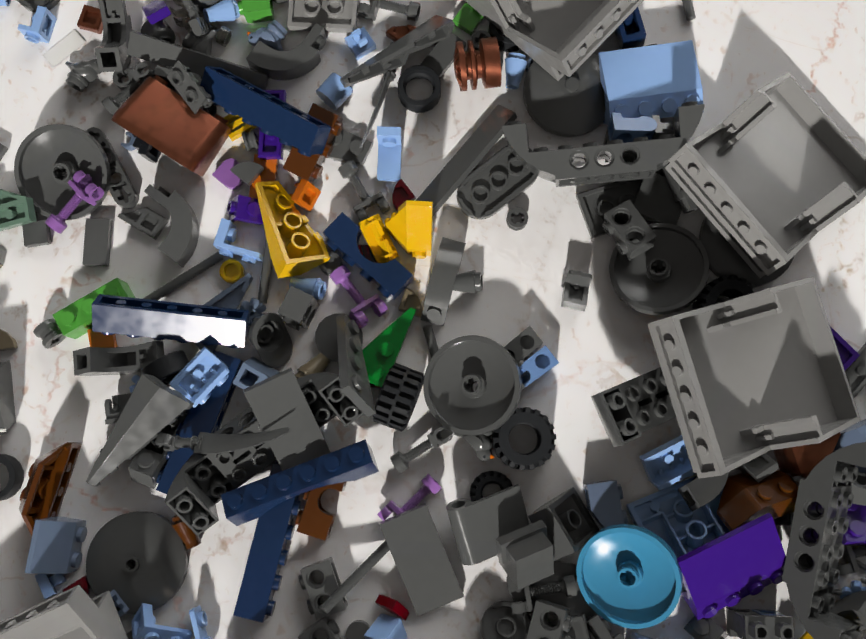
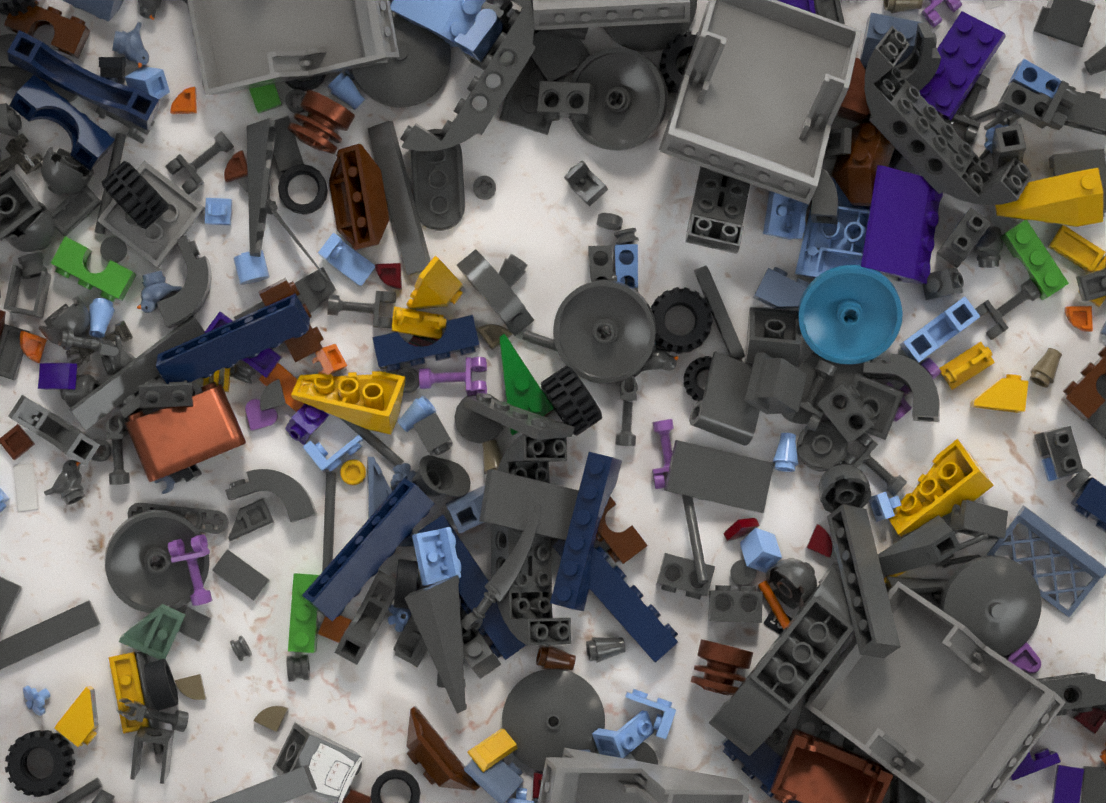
camera: 60 degrees left, 5 degrees up
(38, 280) = (241, 648): none -> dark grey bush
(73, 531) = (492, 749): none -> yellow tile
(221, 563) = (603, 648): none -> dark grey cone
(443, 131) = (358, 197): none -> reddish brown wedge
(478, 601) = (786, 453): none -> light blue cone
(551, 466) = (719, 313): none -> dark grey beam
(558, 350) = (626, 236): none -> dark grey bush
(560, 329) = (609, 221): none -> dark grey tile

